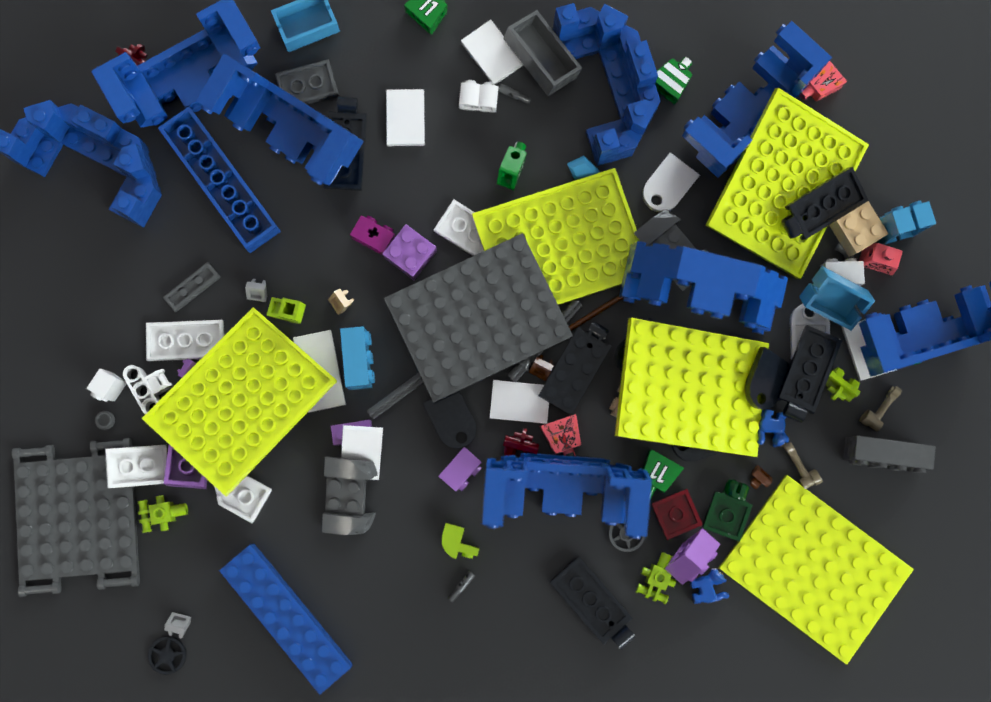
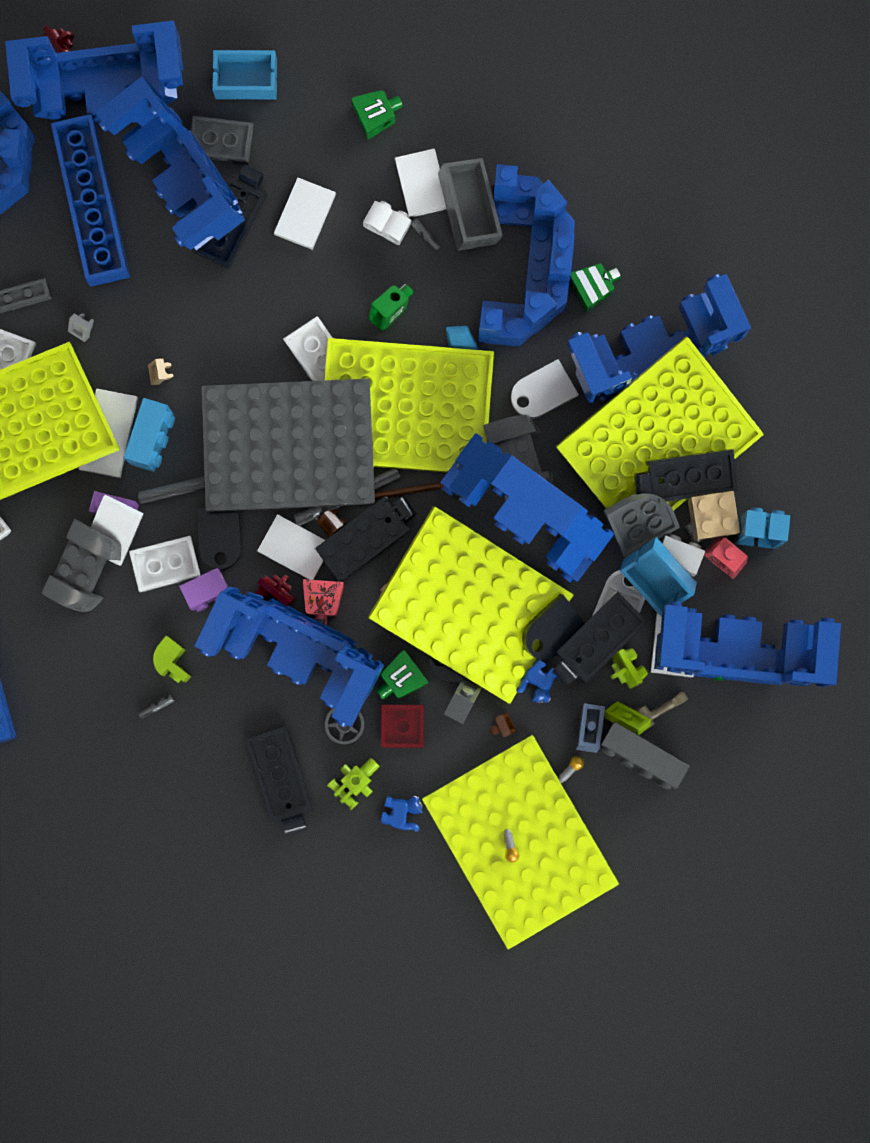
camera: 30 degrees right, 0 degrees up
(286, 309) = (101, 358): lime brick -> none
(368, 225) = (223, 330): magenta brick -> none
(409, 252) = (249, 351): medium lavender brick -> none
(415, 462) = (165, 563): none -> white tile
(693, 557) = (396, 773): medium lavender brick -> none
(720, 471) = (462, 700): none -> dark grey brick
(729, 510) = (456, 746): dark green plate -> none
(802, 259) = (640, 520): none -> dark grey plate
(808, 478) = (553, 747): dark tan brick -> none
(816, 582) = (511, 853): none -> piece
(824, 83) = (749, 351): coral torso -> none
(833, 483) = (576, 763): none -> piece
(834, 448) = (590, 728): none -> sand blue brick
(861, 427) = (627, 718): none -> lime plate

